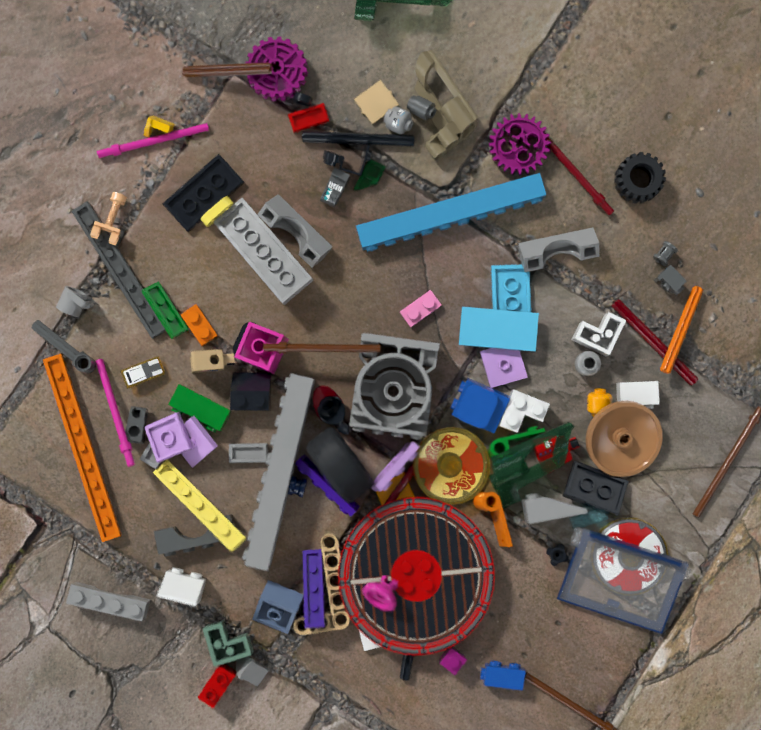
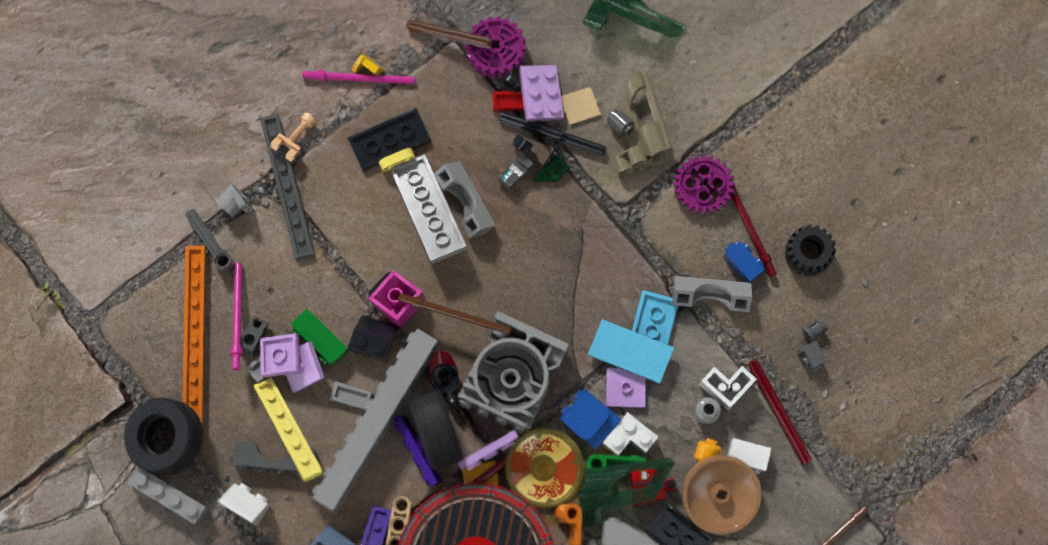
camera: 15 degrees right, 10 degrees down
(63, 558) = (140, 431): none -> black tyre
(142, 372) = (276, 287): slope -> none
(165, 310) = (316, 236): green tile -> none
(199, 325) = (344, 260): orange plate -> none
(201, 360) = (335, 296): tan torso -> none
(297, 486) = (388, 442): dark blue wheel -> none
(335, 101) = (541, 93): none -> lavender plate
(398, 120) = (595, 128): light grey head -> none
(420, 308) = (561, 310): bright pink plate -> none
(451, 211) = (619, 228): dark azure brick -> none
(579, 208) = (743, 262): none -> blue brick
(681, 330) = (809, 407): orange axle -> none

